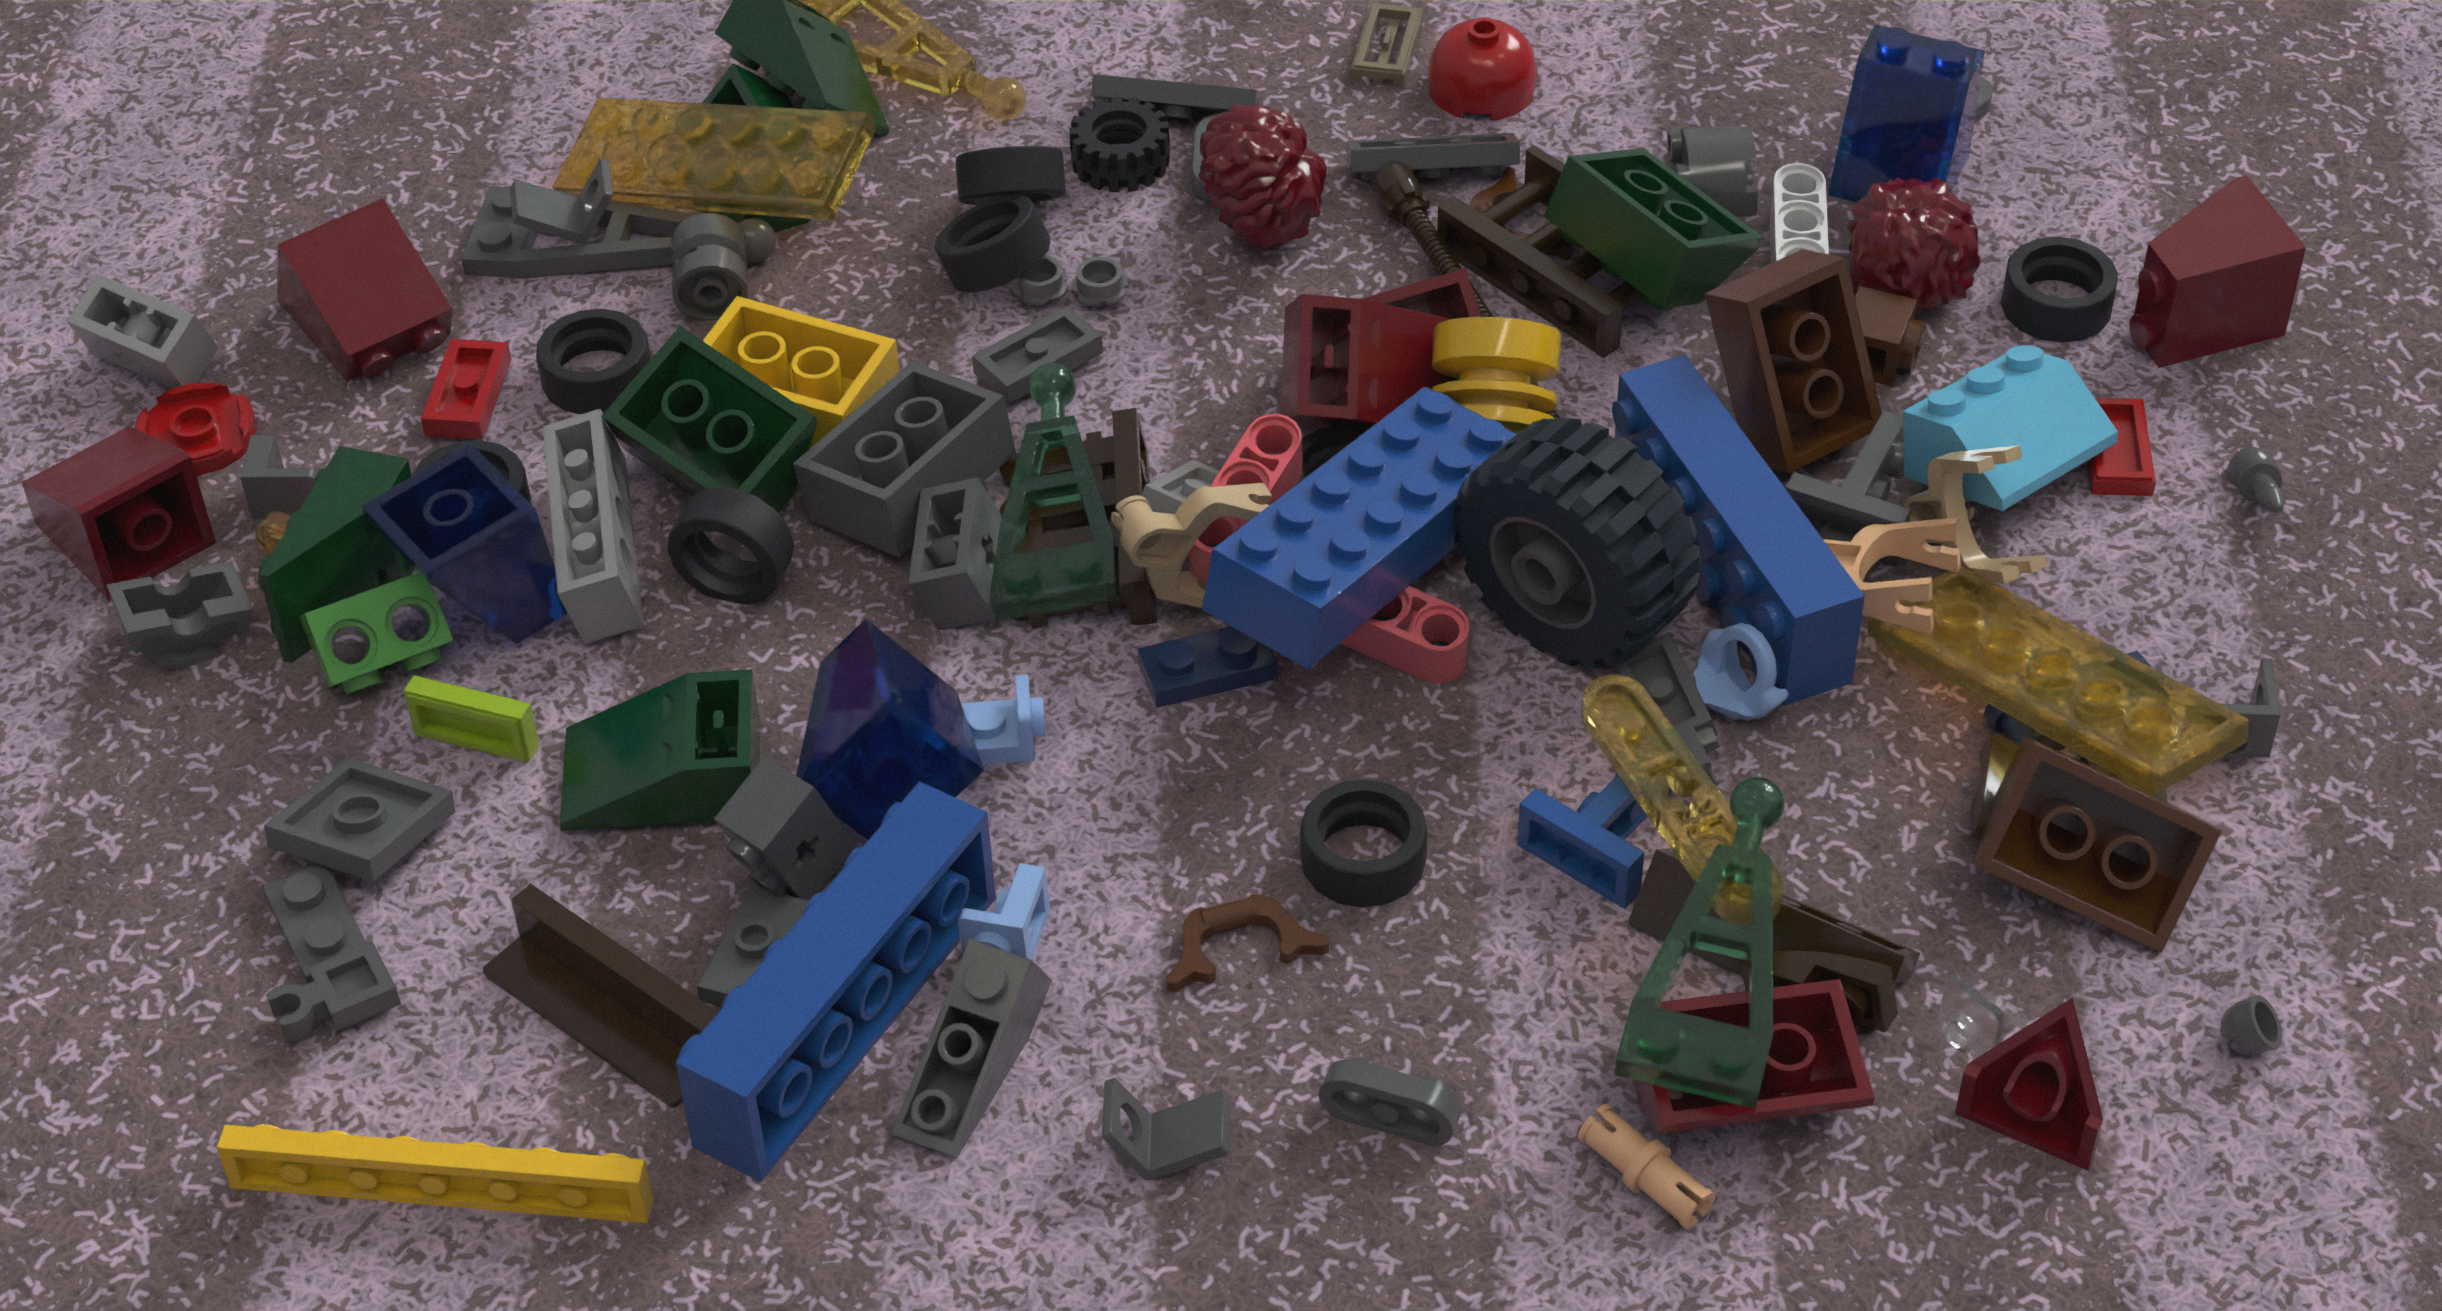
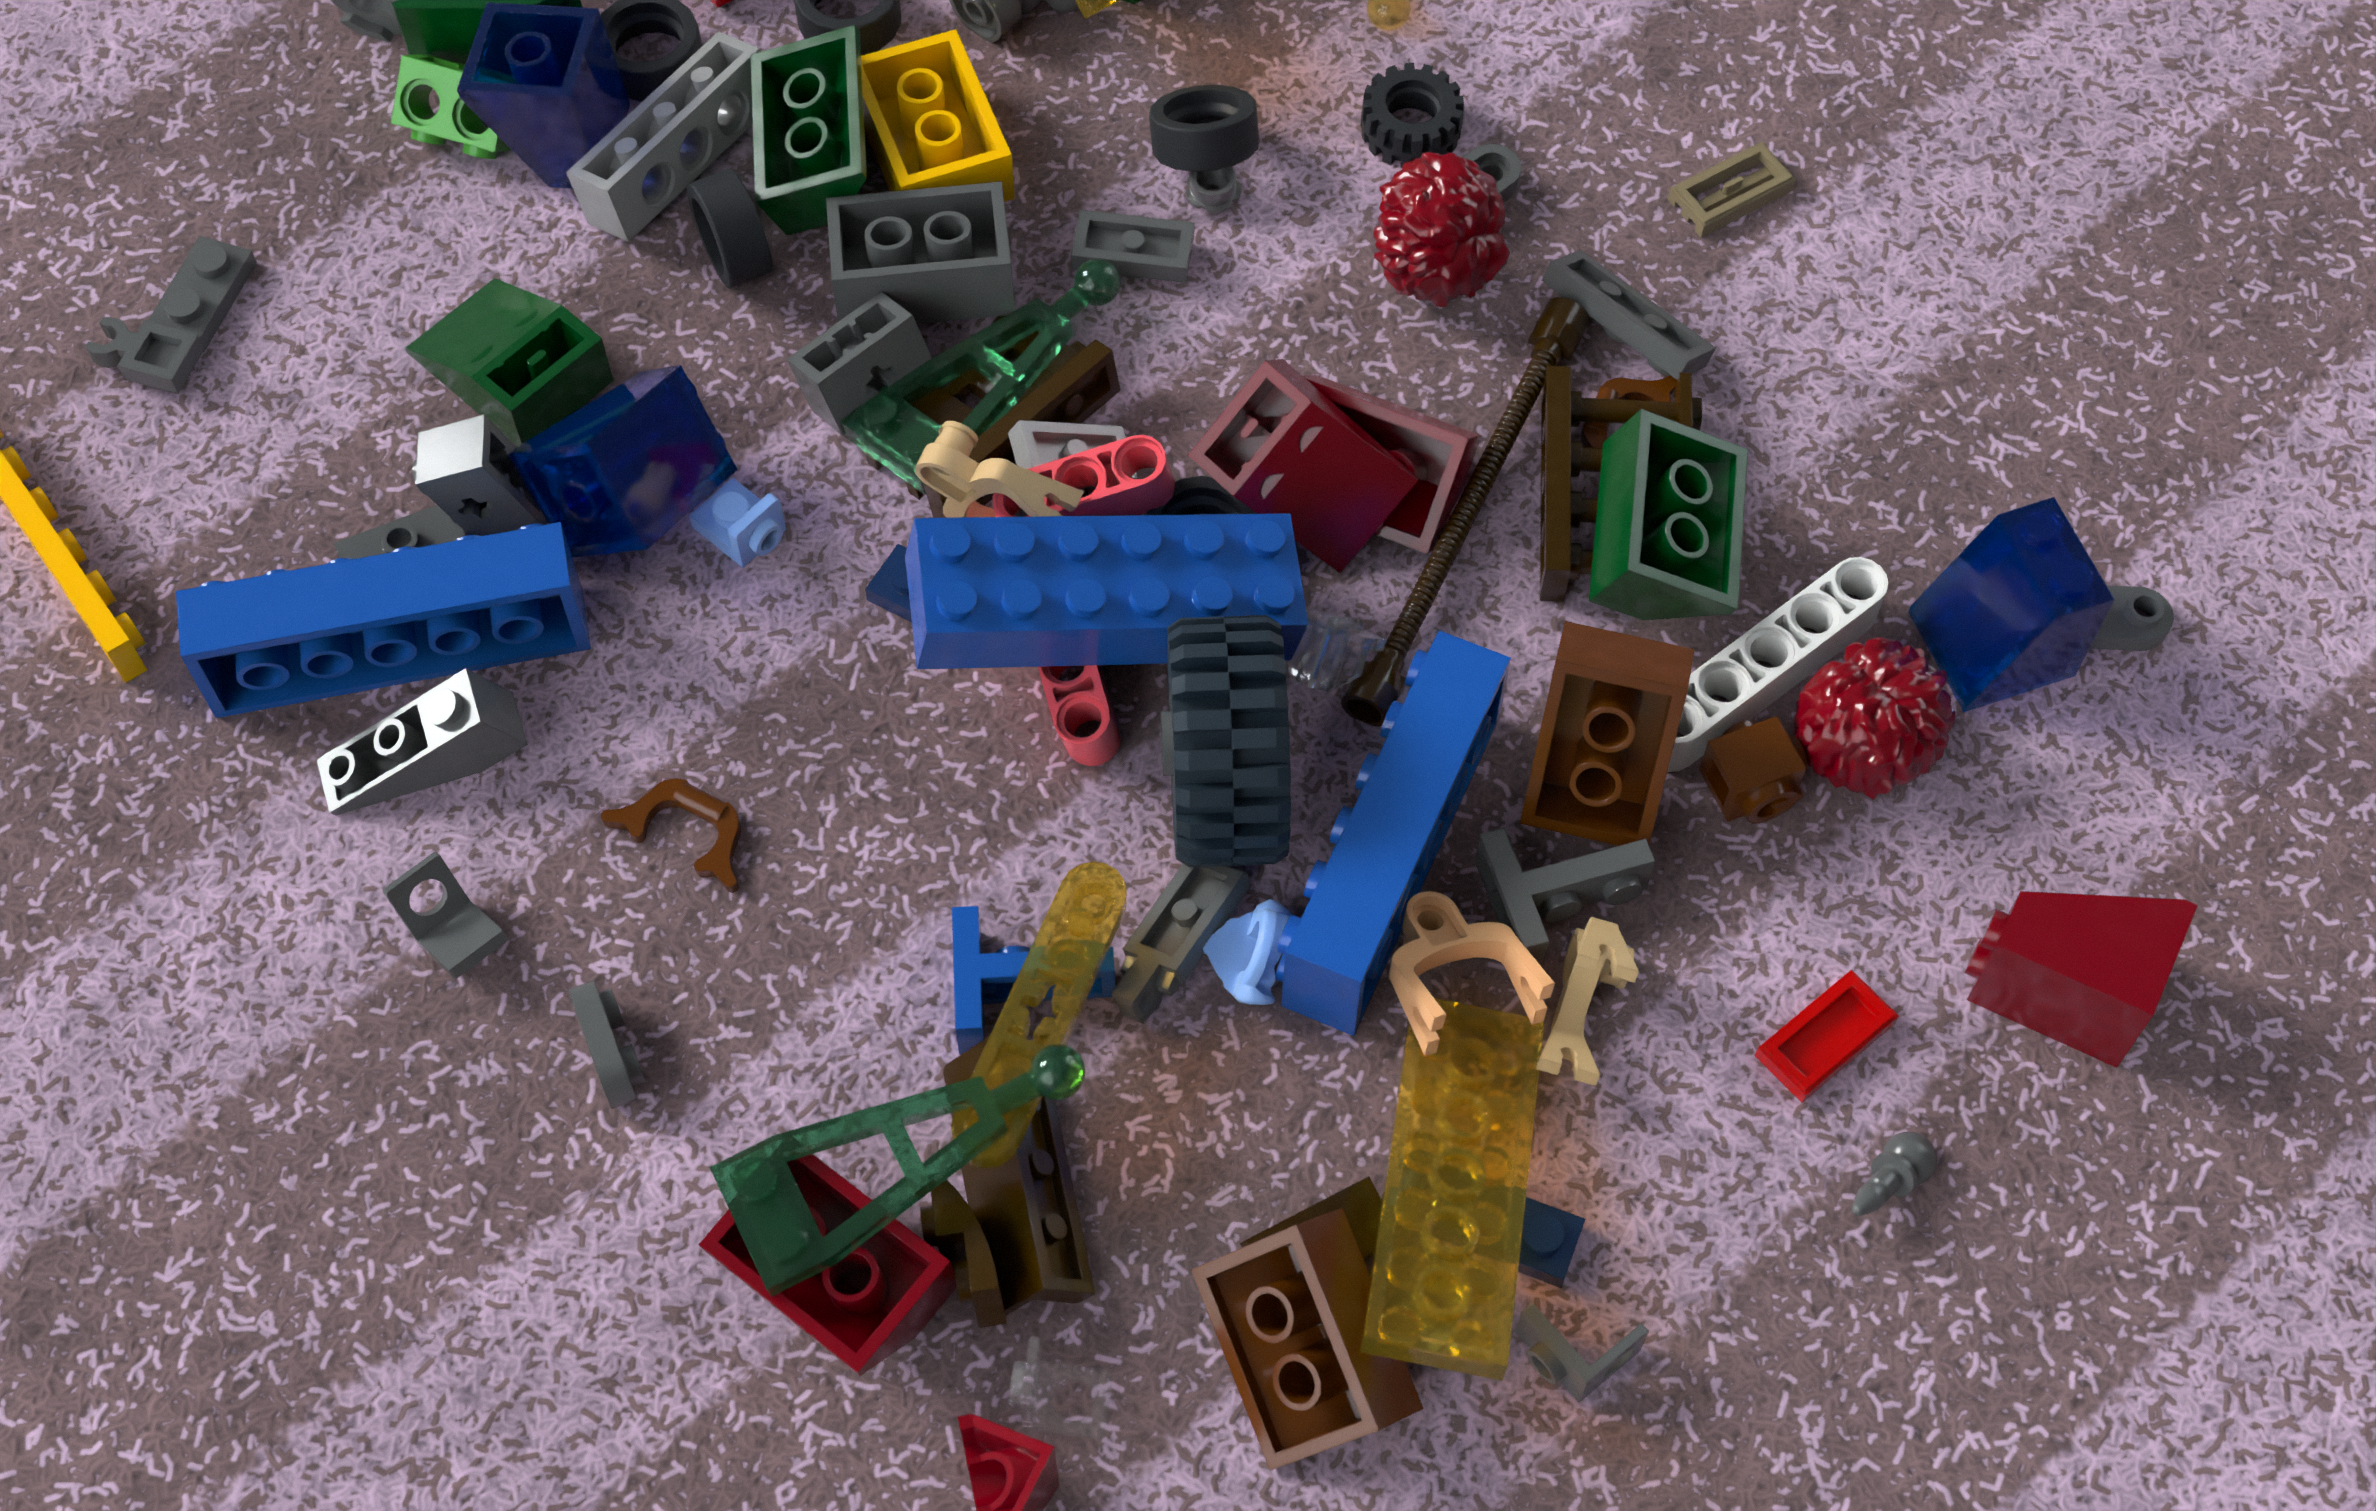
camera: 45 degrees right, 15 degrees up
(359, 819) = (300, 238): dark grey plate -> none
(471, 718) = (443, 221): lime tile -> none
(599, 993) = (280, 484): dark brown panel -> none
(1009, 171) = (1281, 80): black tyre -> none
(1017, 915) = (561, 681): light blue bracket -> none
(1099, 282) = (1255, 211): flat silver plate -> none
(1174, 99) = (1503, 110): dark grey plate -> none
(1363, 881) = (831, 791): black tyre -> none
(1482, 69) = (1766, 273): red cylinder -> none
(1496, 367) = (1362, 564): yellow wheel -> none
(1646, 1166) = (695, 1269): light nougat pin -> none
(1717, 164) = (1830, 512): dark grey cylinder -> none
(2009, 402) = (1723, 944): medium azure slope -> none
(2056, 317) = (1973, 817): black tyre -> none

